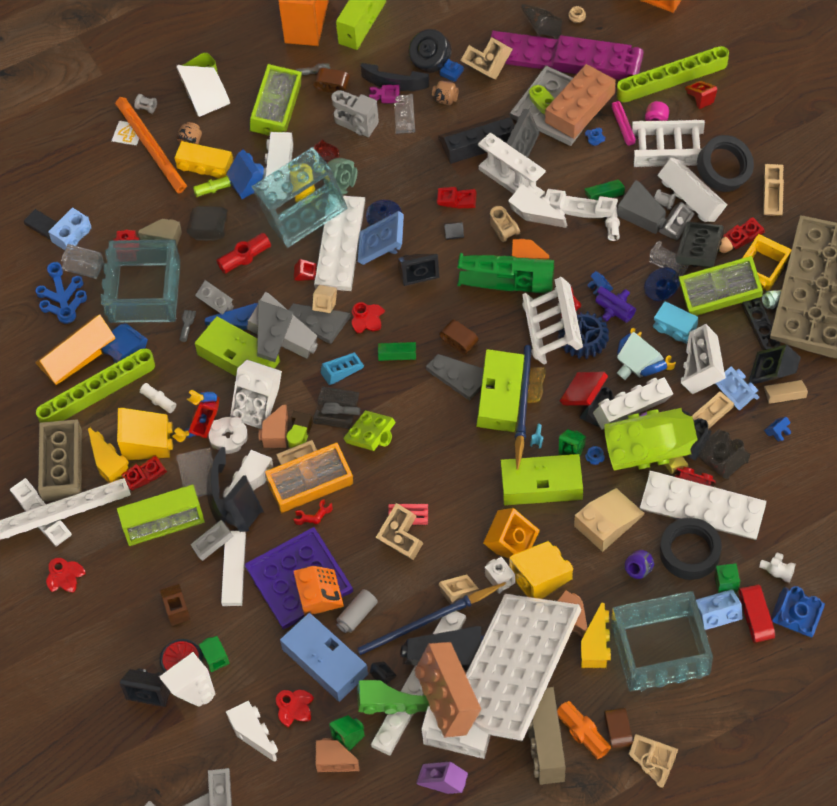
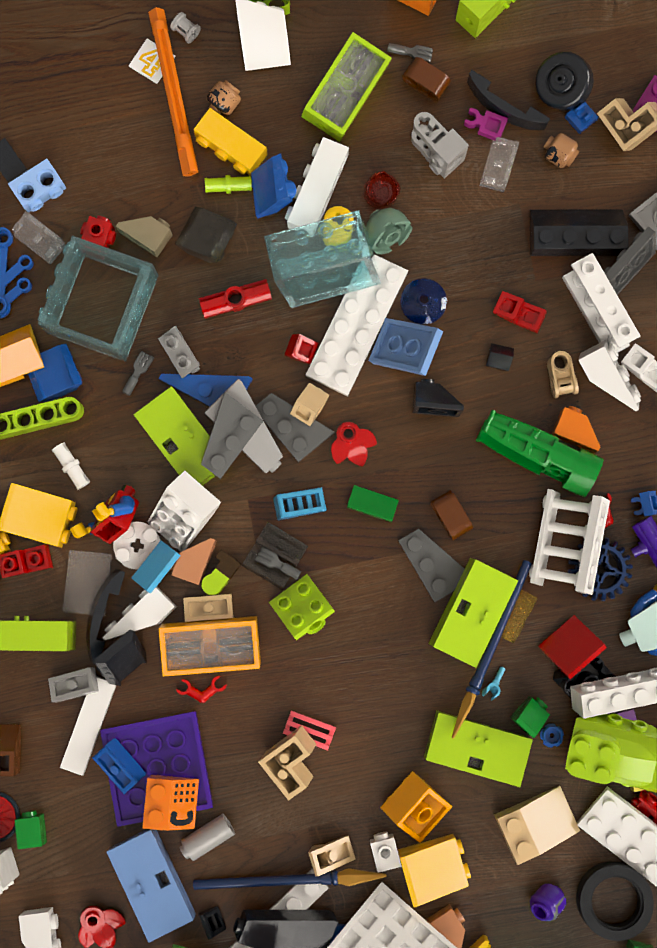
camera: 15 degrees right, 25 degrees up
(247, 436) = (155, 566): none -> dark azure tile
(267, 582) = (119, 765): none -> blue slope

